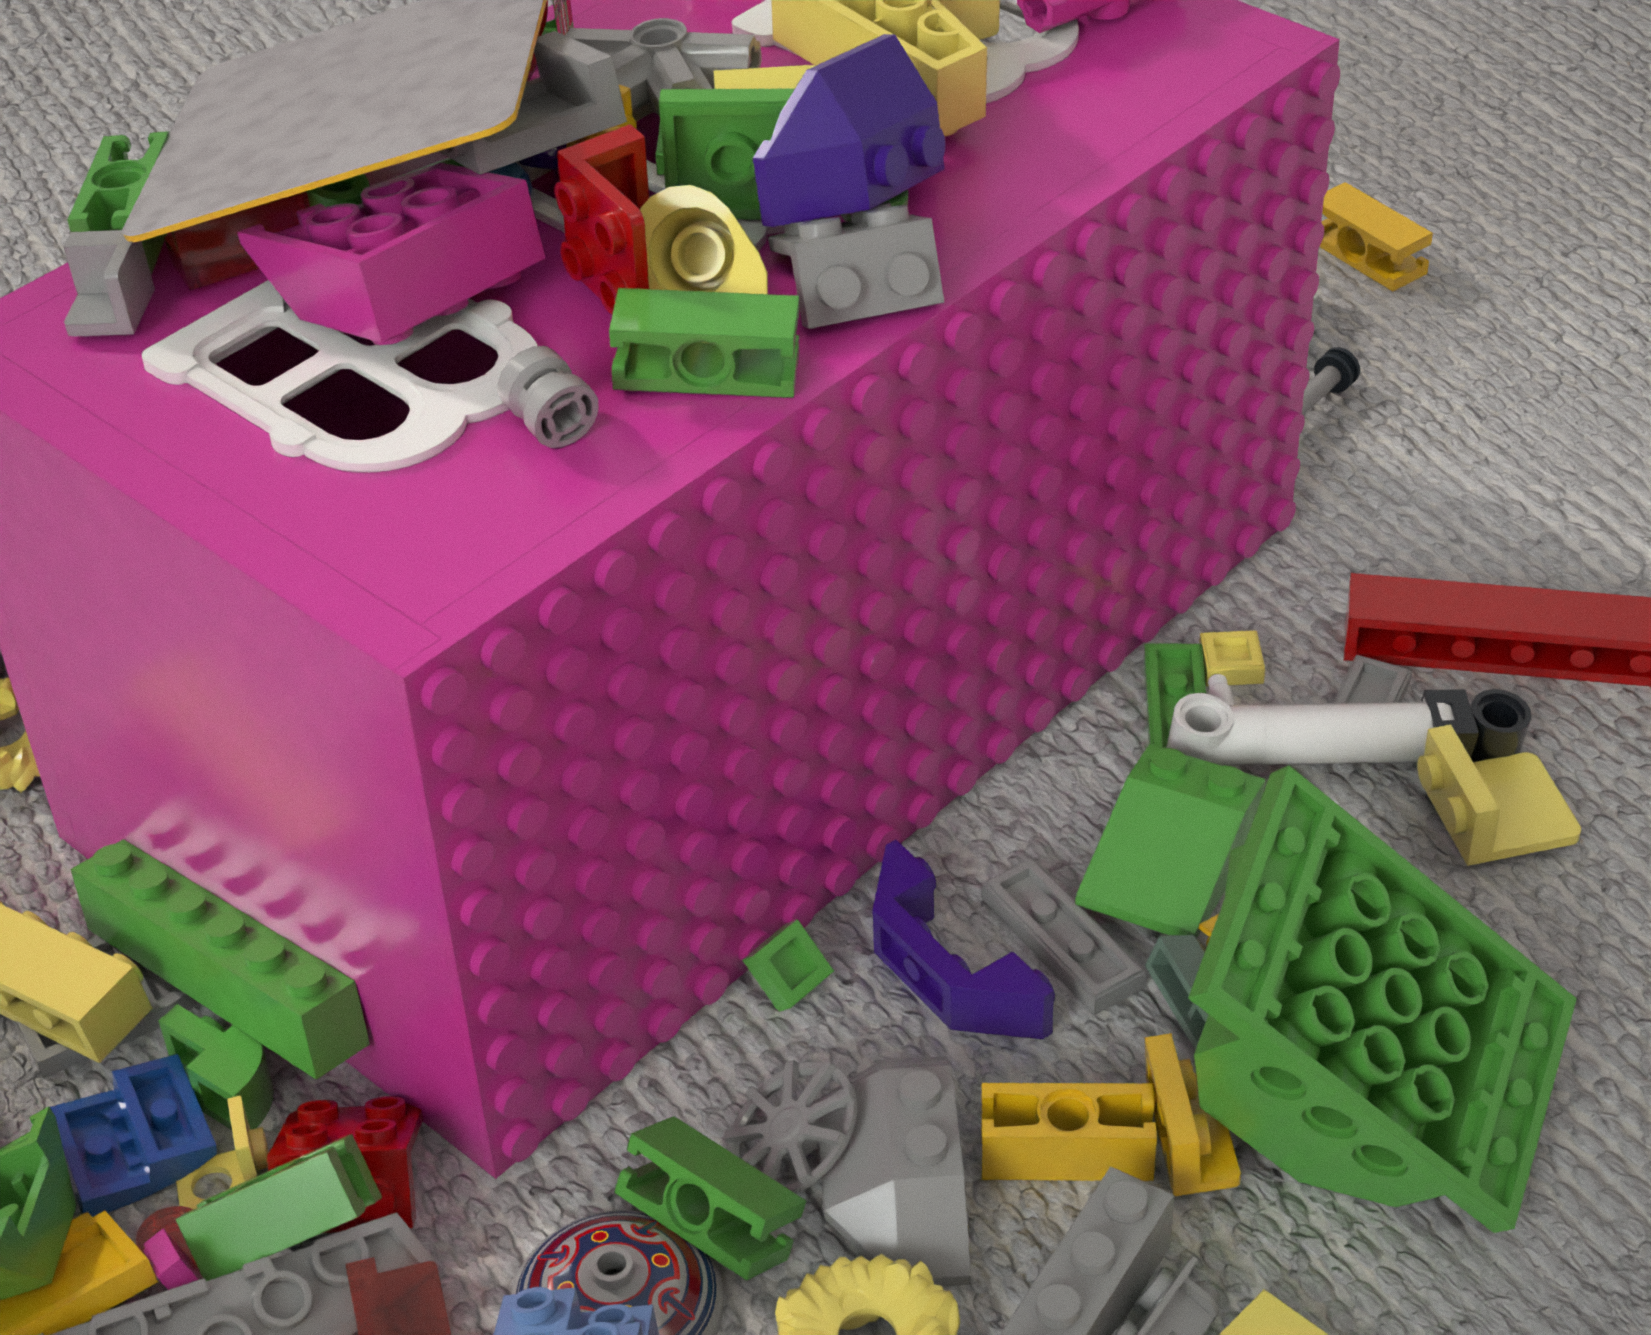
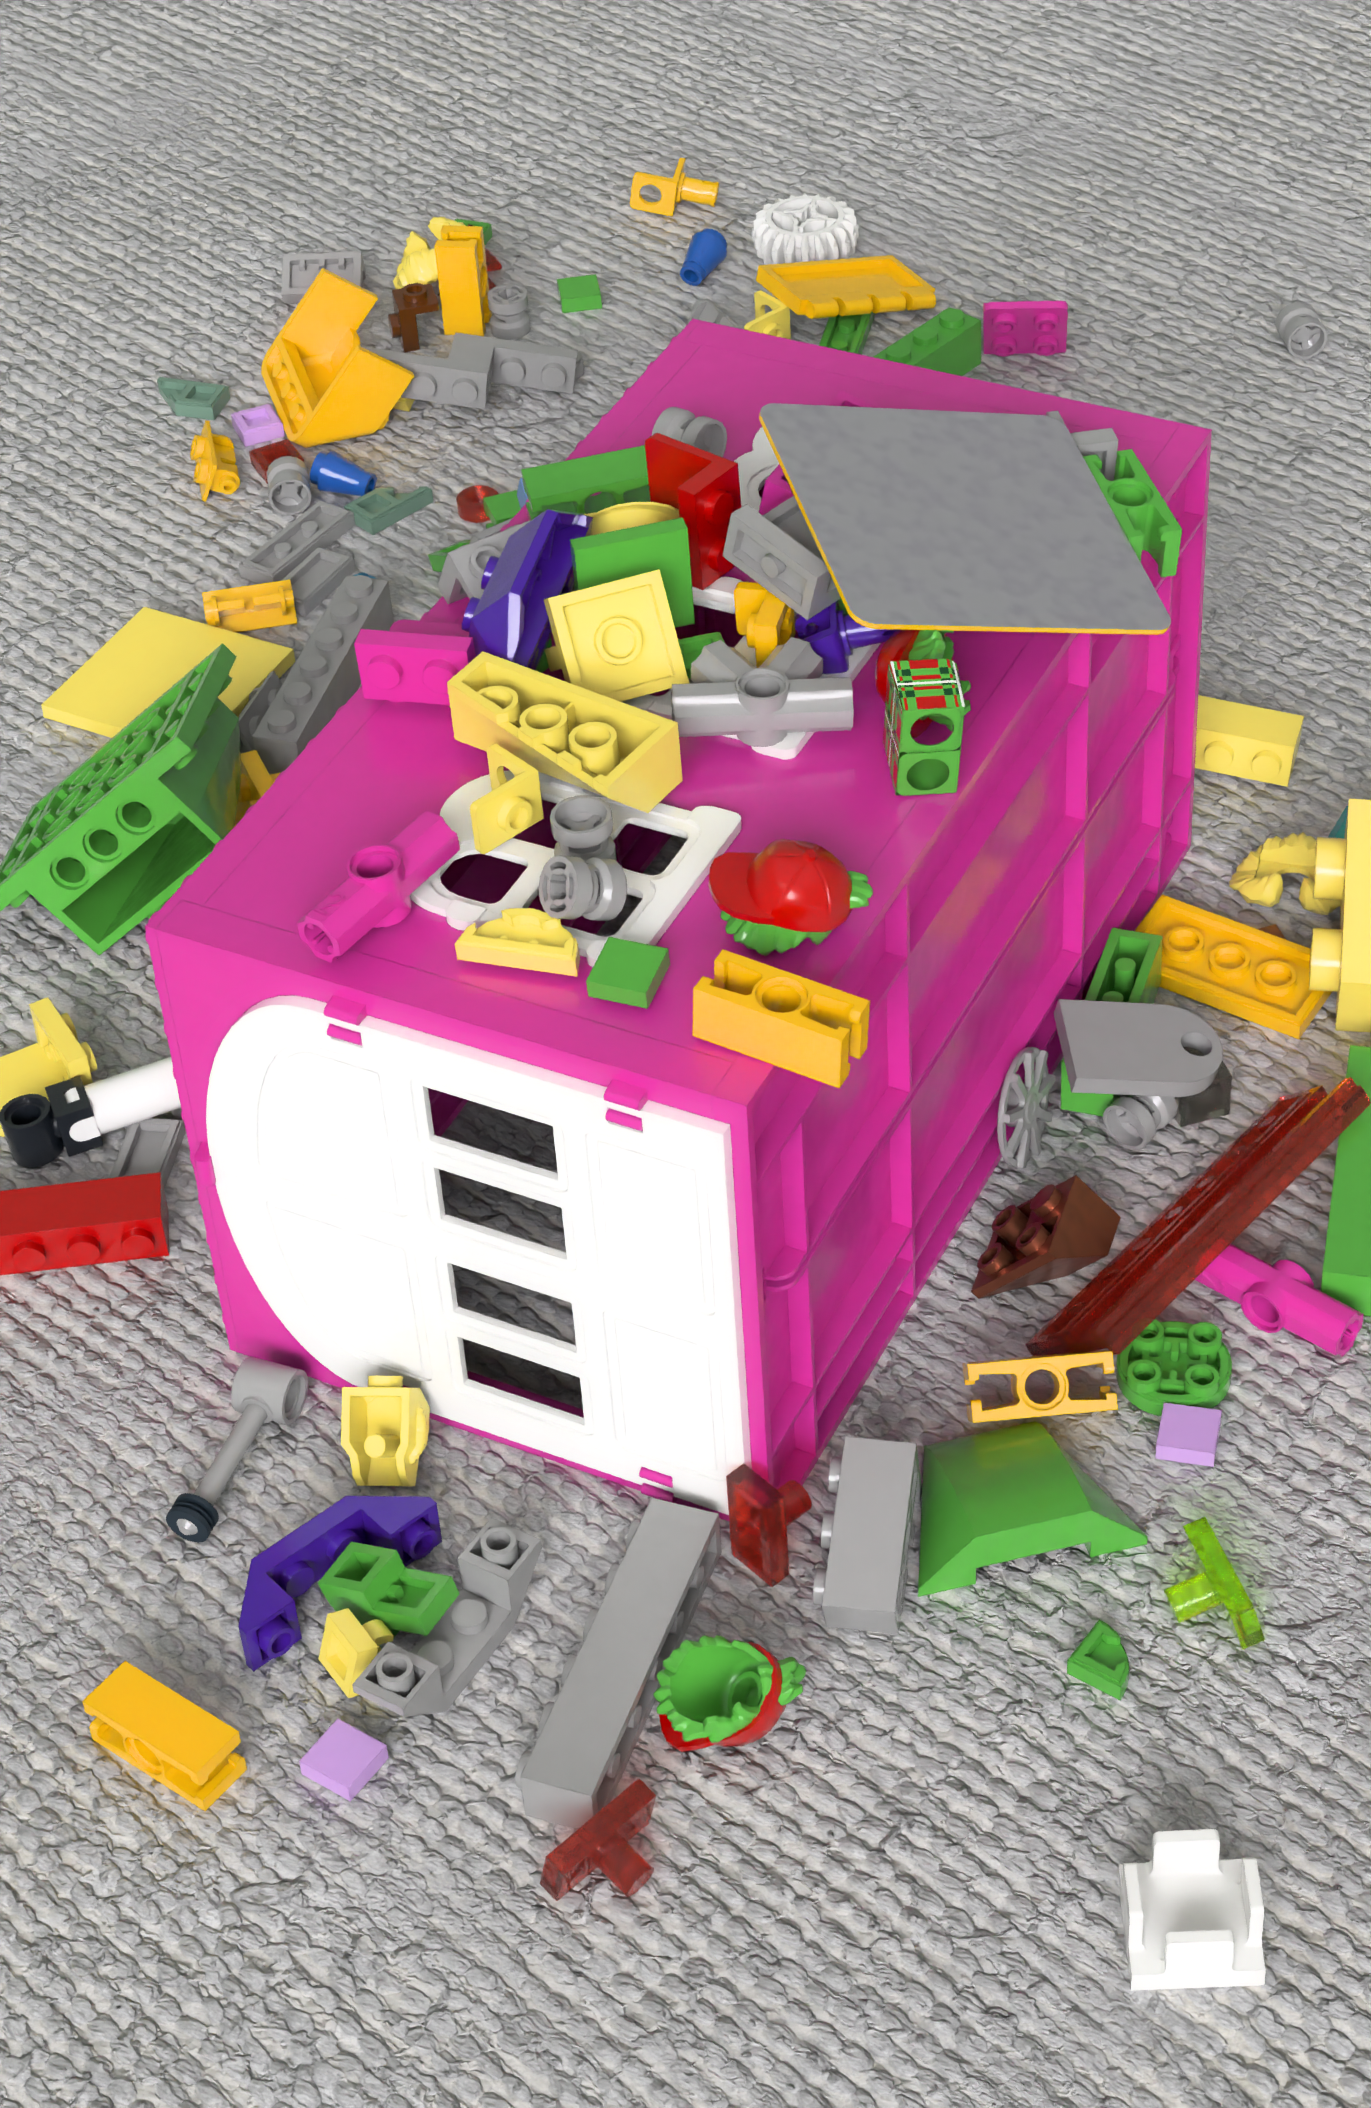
camera: 165 degrees right, 0 degrees up
(999, 174) = (412, 660): none -> dark pink bracket

